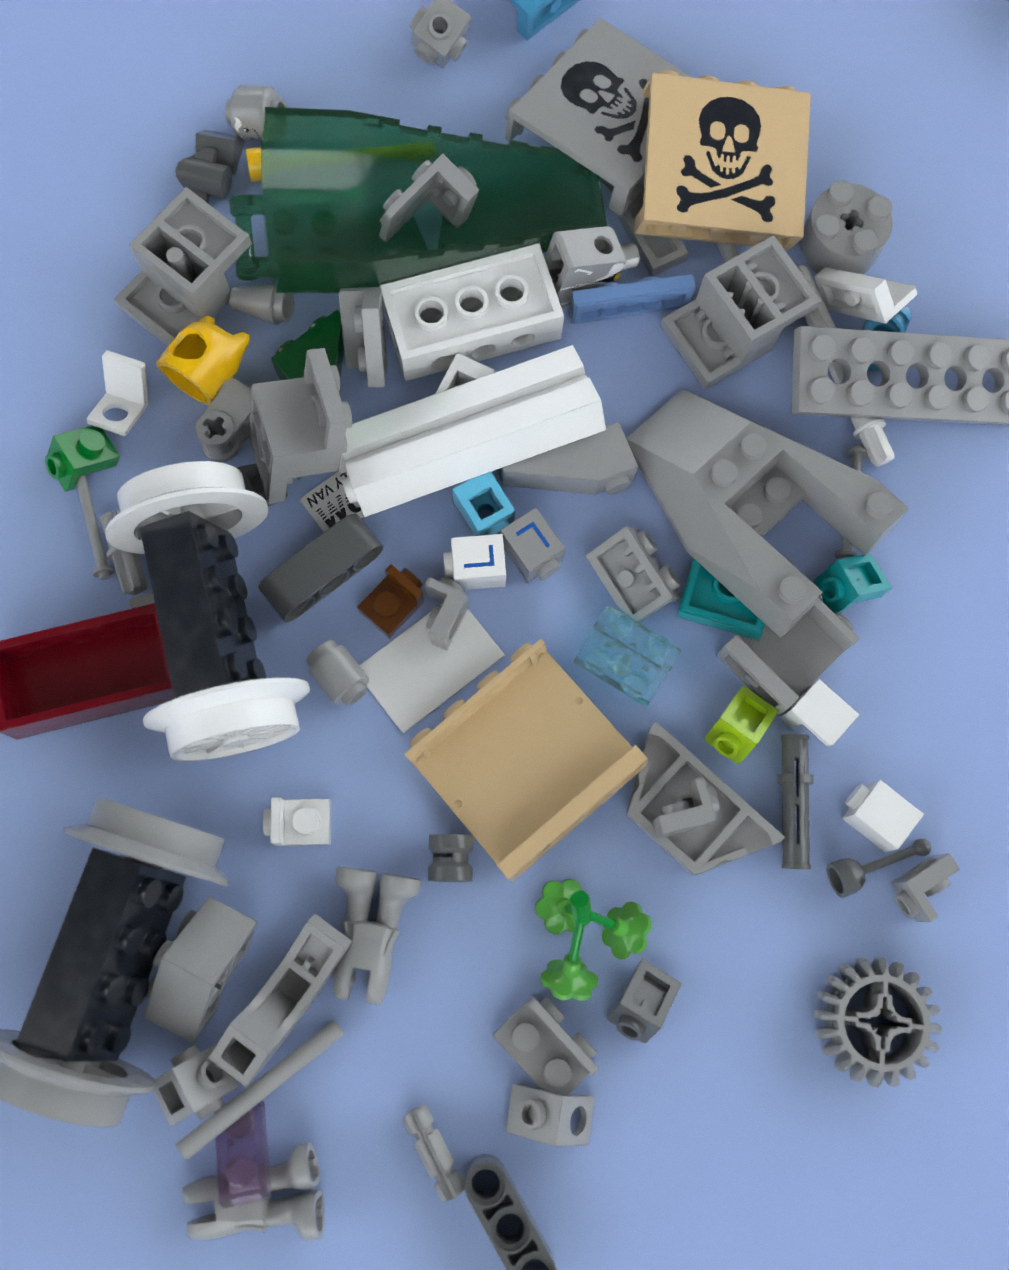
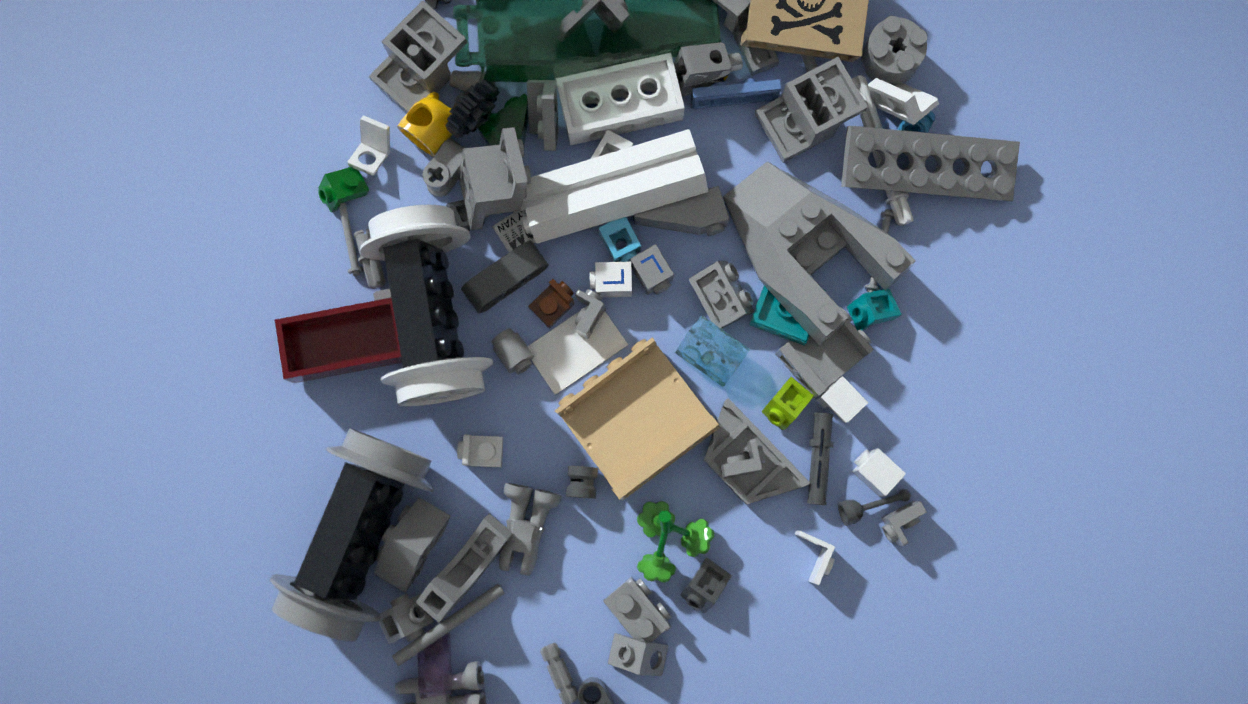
camera: 10 degrees right, 5 degrees up
(262, 330) = (472, 108): none -> black gear
(815, 954) = (824, 562): none -> white bracket
(877, 1038) = (860, 623): light grey gear -> none

